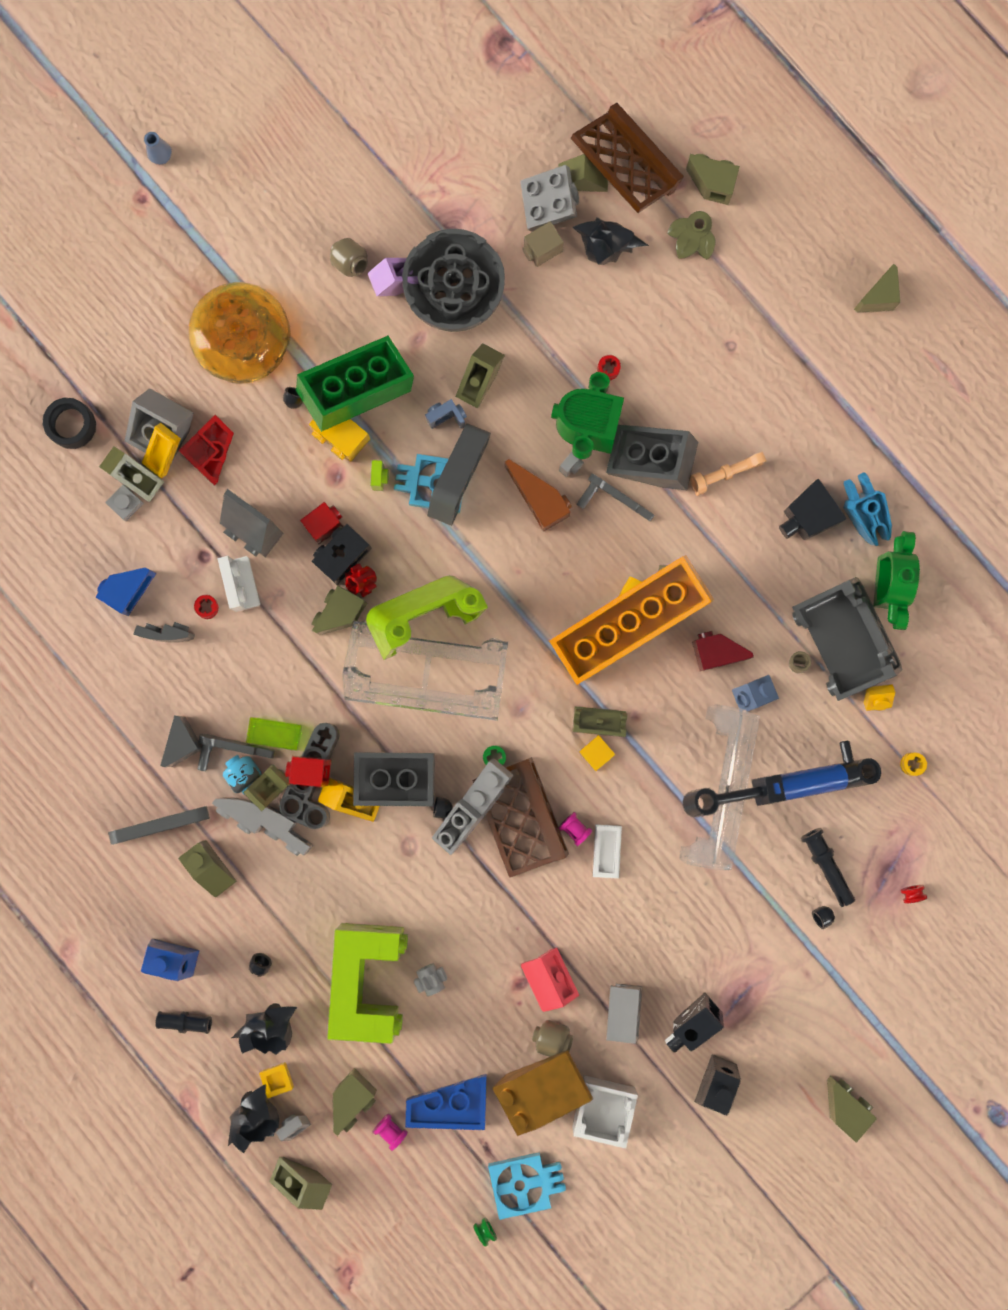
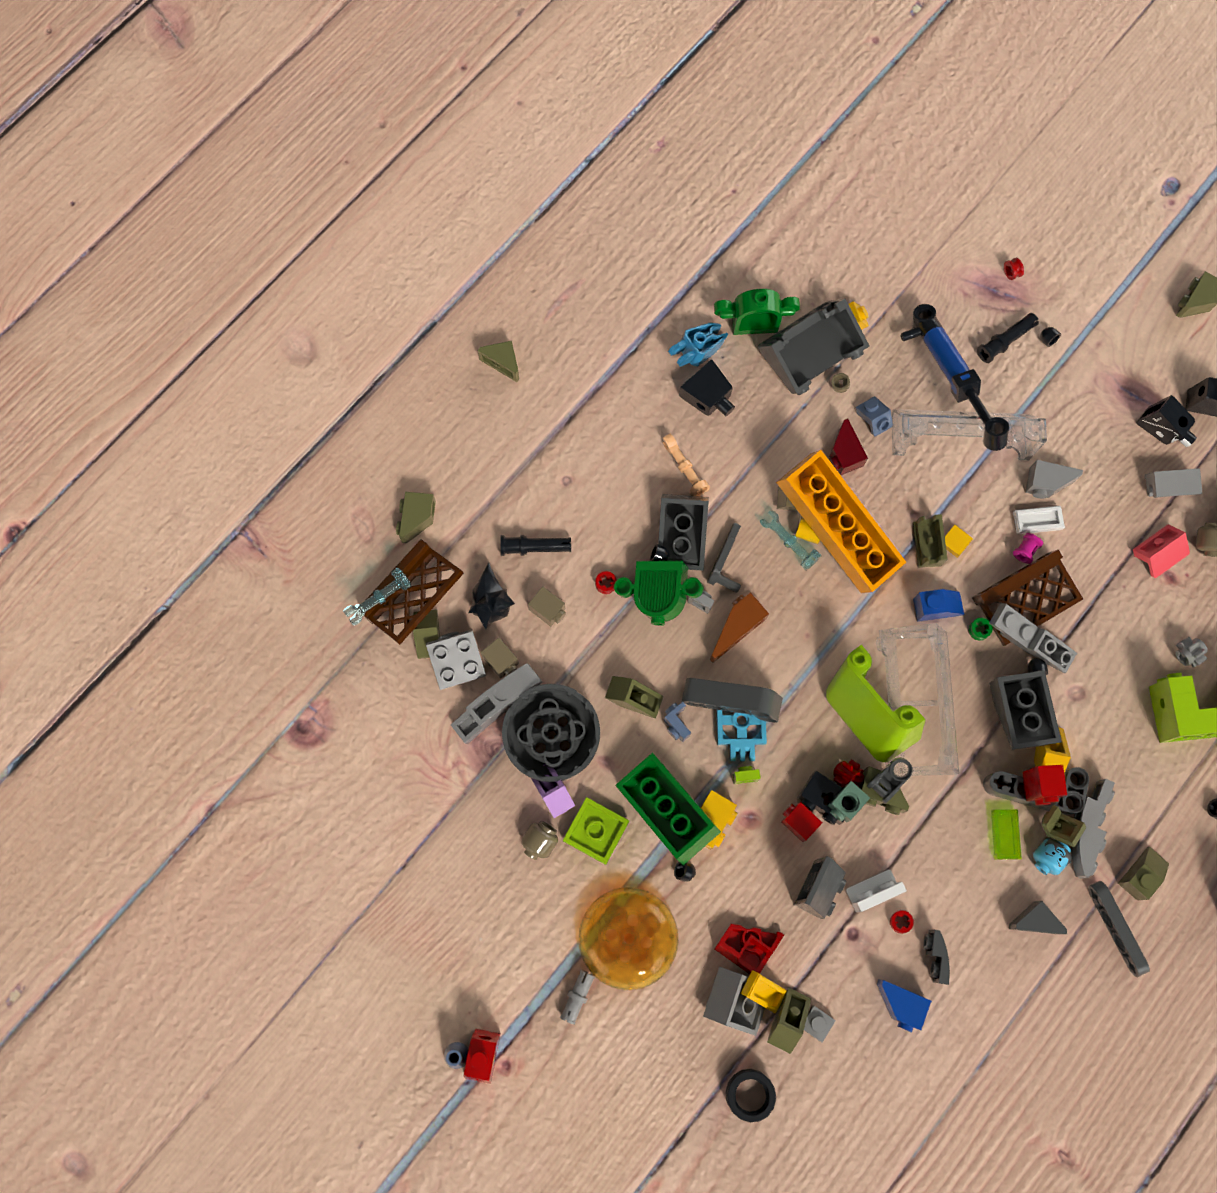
camera: 105 degrees left, 10 degrees down
(147, 171) = (482, 1056): none -> red torso
(191, 272) = (577, 997): none -> light grey pin
(209, 741) = (1027, 892): dark grey piece -> none
(330, 577) = (857, 797): none -> sand green brick
(343, 613) = (890, 780): none -> dark grey piece
(349, 315) = (596, 831): none -> lime plate
(497, 231) = (494, 702): none -> light grey slope
(527, 717) = (937, 604): none -> blue slope
(590, 300) = (547, 607): none -> dark tan brick
(623, 571) = (808, 559): none -> clear light blue piece
(628, 425) = (659, 553): none -> black hinge
(639, 145) = (378, 597): none -> clear light blue piece
(650, 873) = (1049, 478): none -> light grey slope
(662, 286) = (522, 545): none -> black pin
(691, 238) = (474, 528): olive plate -> none
(916, 771) = (911, 281): yellow bush -> none

